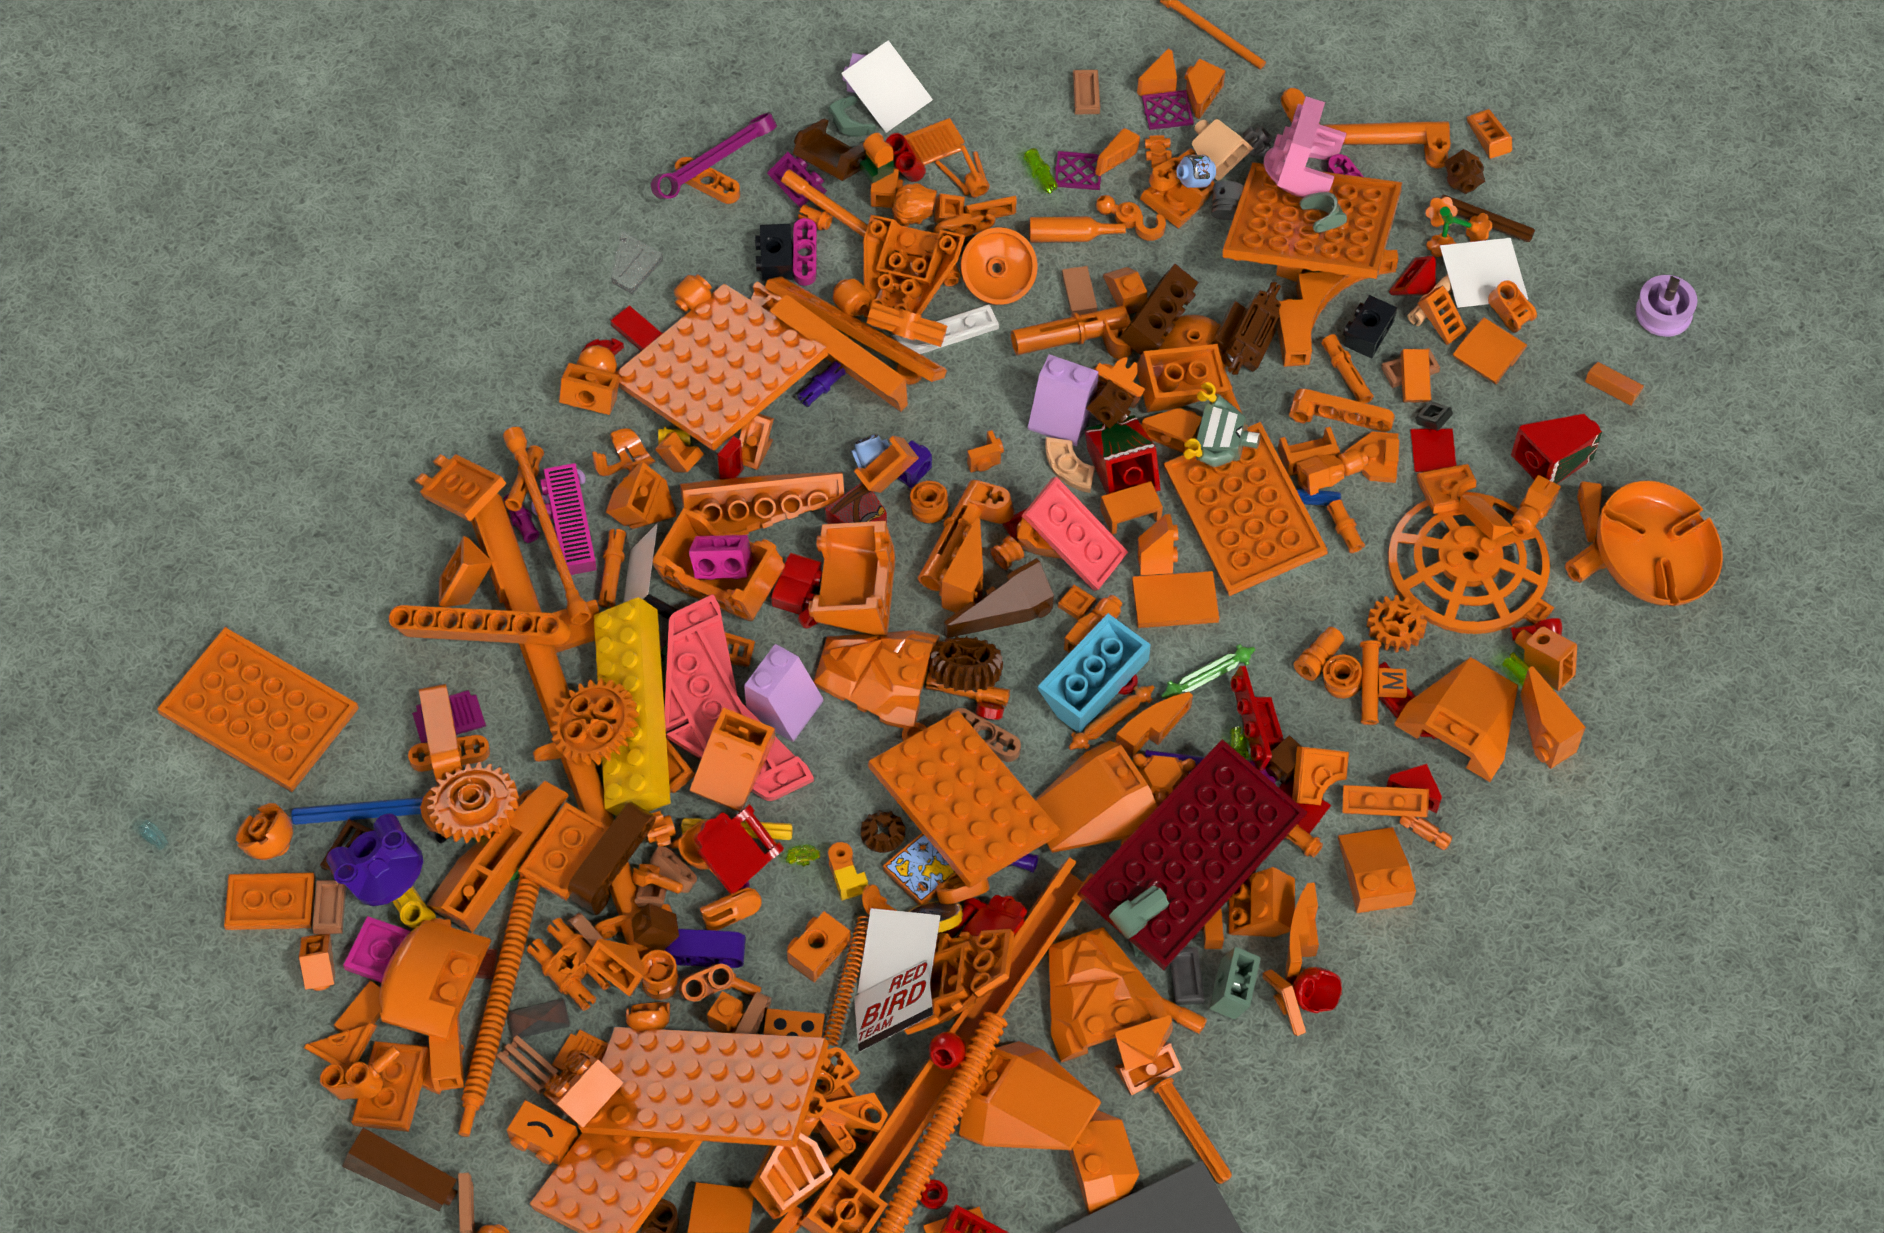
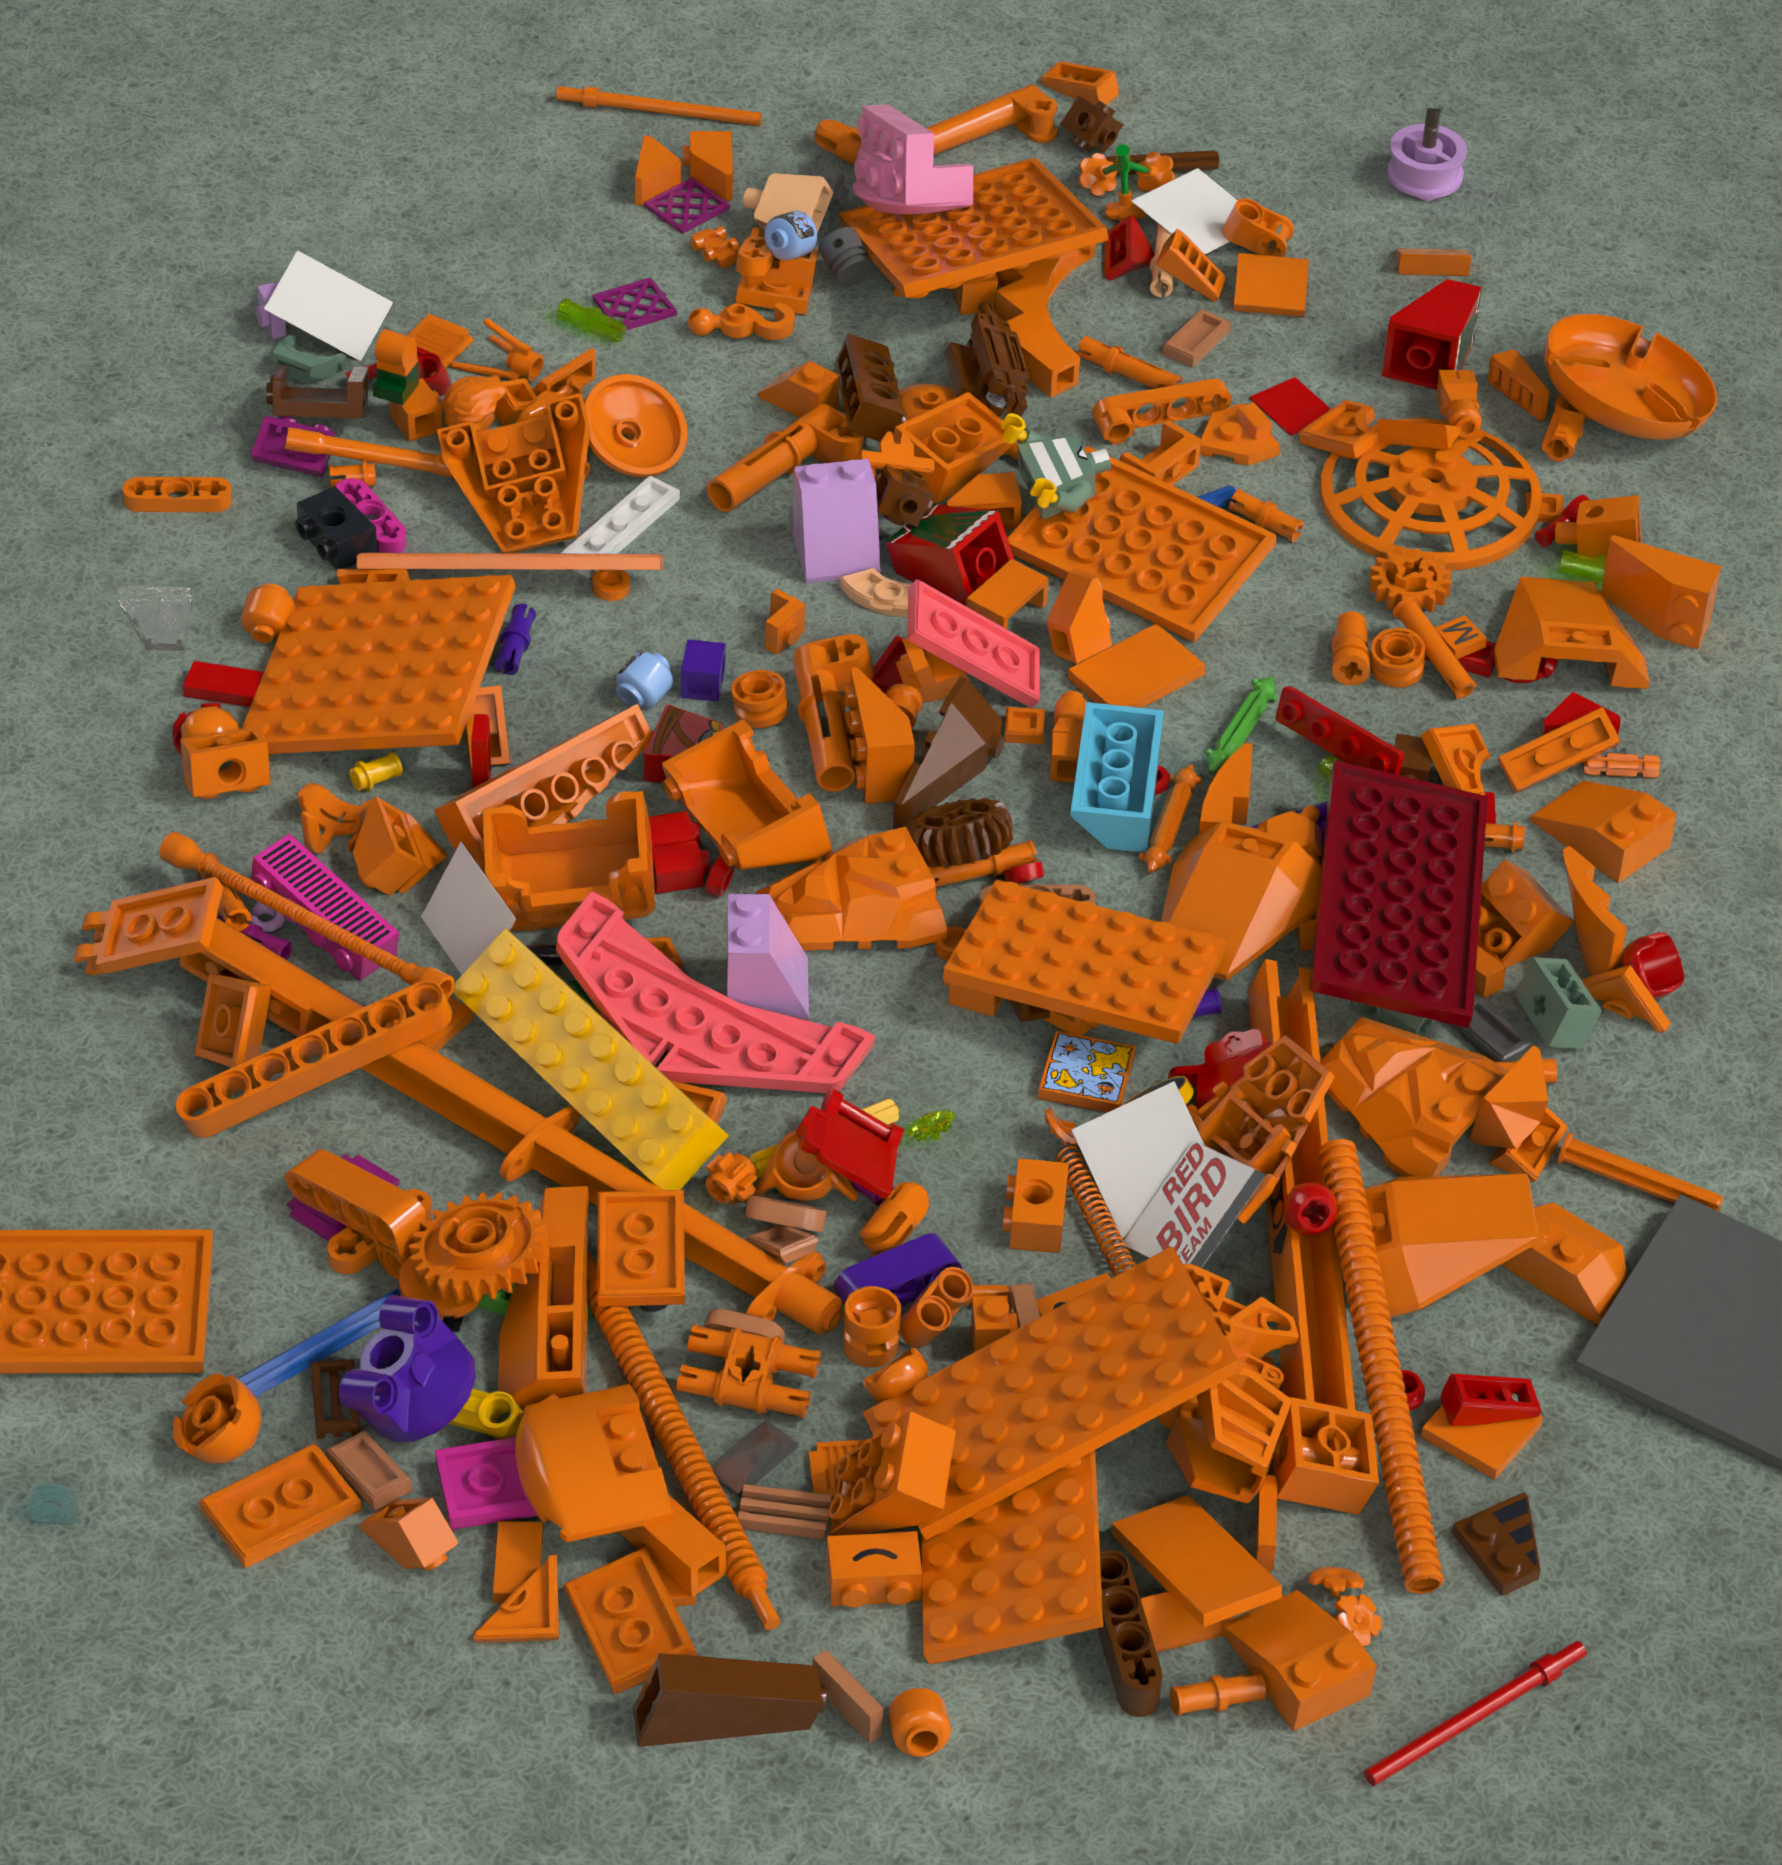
camera: 35 degrees left, 15 degrees down
(359, 1079) = (580, 1633): orange beam -> none
(594, 722) = (566, 1083): orange gear -> none
(608, 857) = (707, 1228): reddish brown beam -> none
(613, 558) = (413, 930): orange pin -> none
(617, 963) = (821, 1329): orange slope -> none
(650, 874) = (766, 1227): orange bar -> none
(655, 927) = (830, 1269): reddish brown brick -> none
(677, 454) = (402, 786): orange panel -> none
(721, 556) = (566, 838): dark pink brick -> none
(733, 759) = (769, 1048): orange slope -> none
(757, 127) = (196, 412): magenta piece -> none
(844, 873) = (1001, 1116): leg -> none
(851, 297) = (477, 531): orange head -> none
(852, 357) = (554, 587): orange arch -> none
(881, 842) = (1014, 1067): reddish brown gear -> none
(888, 465) = (686, 669): orange panel -> none
(907, 324) = (576, 526): orange piece -> none
(956, 890) = (1155, 1065): orange beam -> none
(1070, 229) = (685, 358): orange piece -> none
(1079, 290) = (743, 418): nougat tile -> none
(1086, 92) = (574, 224): nougat tile -> none
(1118, 151) = (672, 260): orange slope -> none
(1134, 915) = (1401, 966): sand green piece -> none
(1328, 203) = (981, 198): sand green helmet -> none
(1328, 469) = (1203, 465): orange piece -> none
(1373, 313) = (1118, 312): black brick -> none
(1415, 375) = (1213, 338): orange tile -> none
(1434, 415) = (1267, 369): pearl dark grey tile -> none

